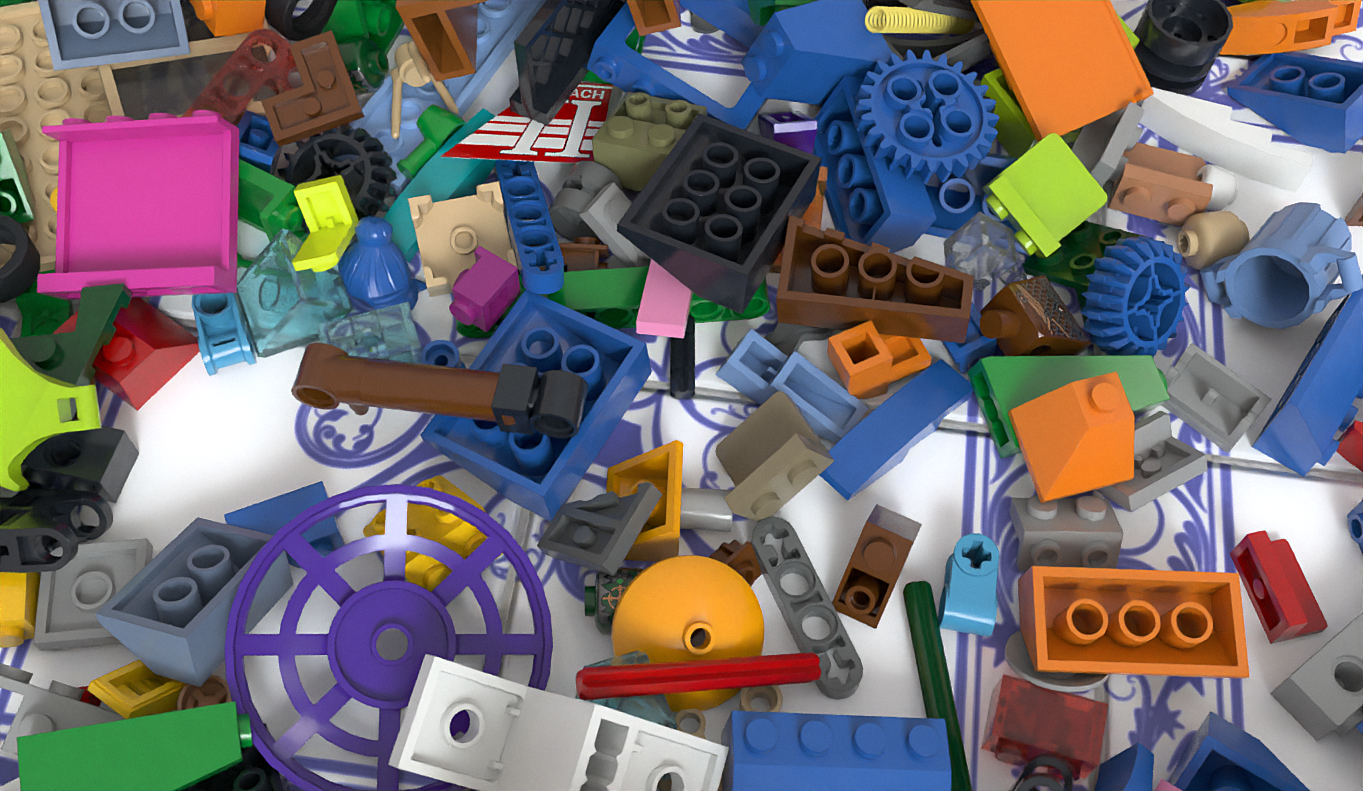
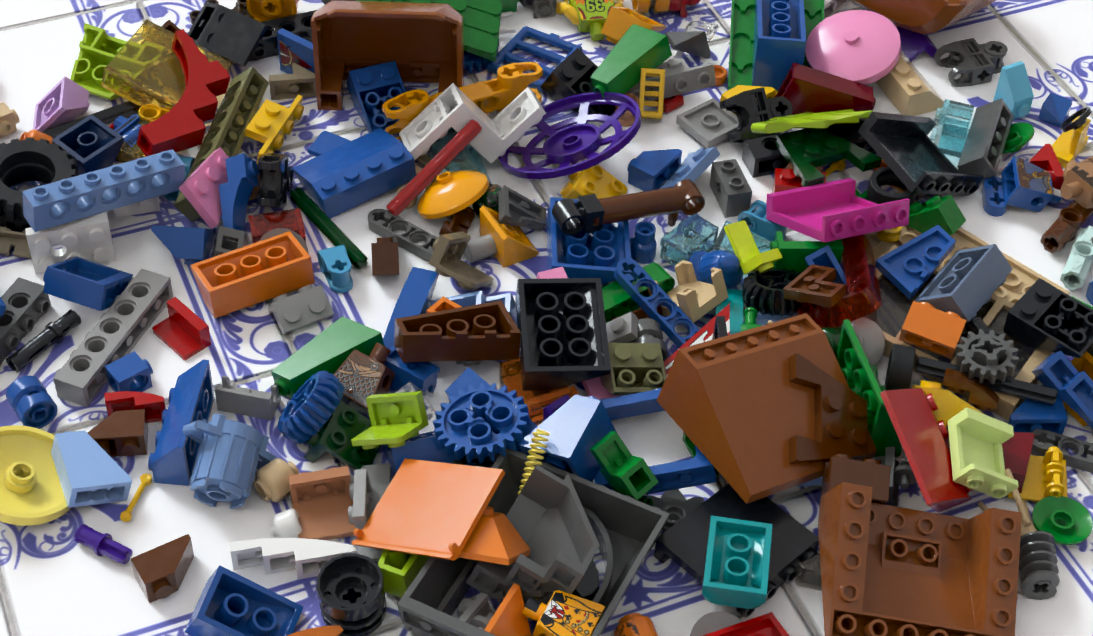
camera: 150 degrees right, 15 degrees down
(122, 90) = (916, 260): none -> blue wing
(182, 599) = (663, 115): sand blue slope -> none
(211, 414) = (730, 187): none -> dark grey brick
(254, 469) = (693, 166): none -> medium blue wing
(484, 290) = (652, 259): magenta brick -> none
(1077, 437) = (314, 325): orange slope -> none
(1154, 719) = (223, 246): none -> dark grey brick
(1159, 464) = (270, 347): light grey bracket -> none

